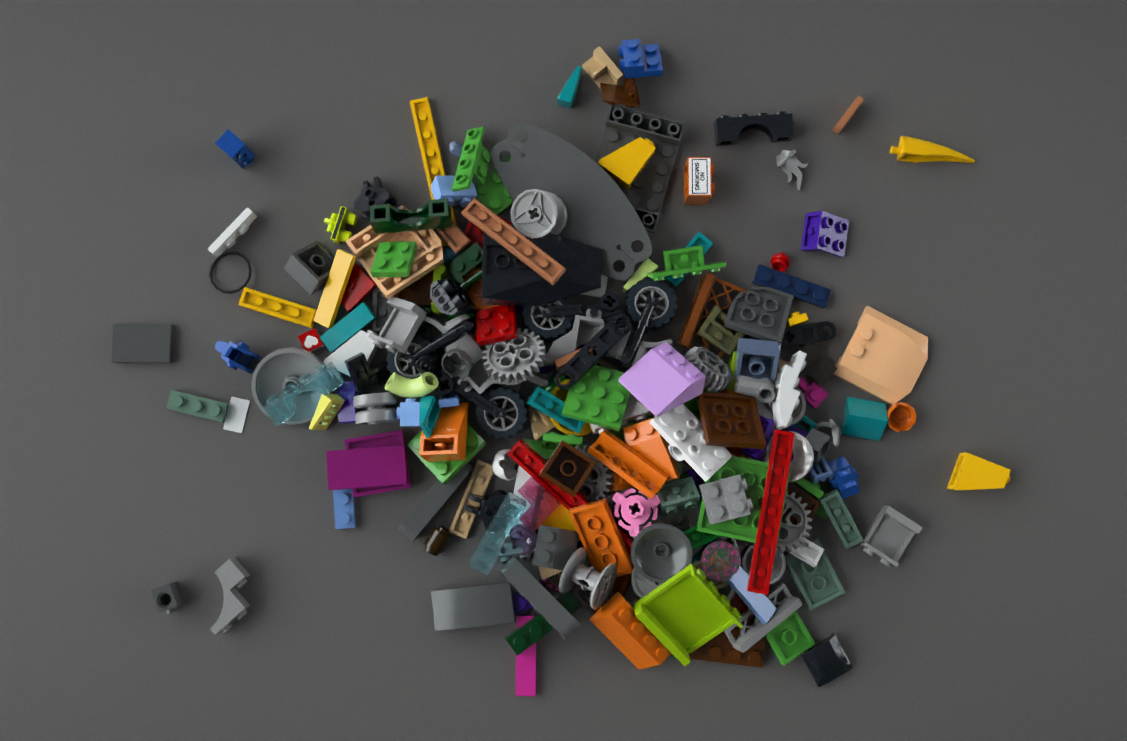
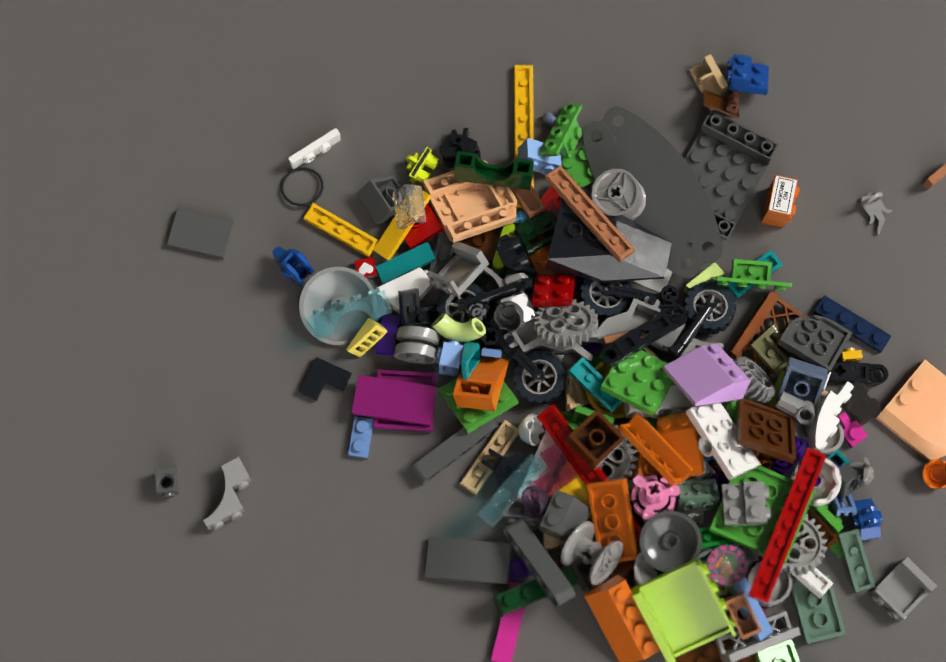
camera: 10 degrees right, 10 degrees down
(197, 406) = (240, 306): sand green plate -> none
(235, 149) = (337, 71): blue brick -> none
(236, 414) = (275, 323): white sticker -> none
(291, 456) = (321, 374): none -> black tile
(335, 271) = (409, 205): none -> clear bracket
(394, 259) = (467, 207): bright green plate -> none
(437, 540) = (446, 488): dark brown brick -> none
(568, 93) = (671, 91): teal slope -> none
(628, 161) = (716, 167): yellow slope -> none
(750, 615) = (748, 626): none -> nougat piece
(777, 127) = (867, 167): black arch -> none
(780, 262) = (845, 297): red plate -> none
(825, 233) = (896, 279): dark purple bracket -> none
(864, 418) = (899, 469): teal slope -> none

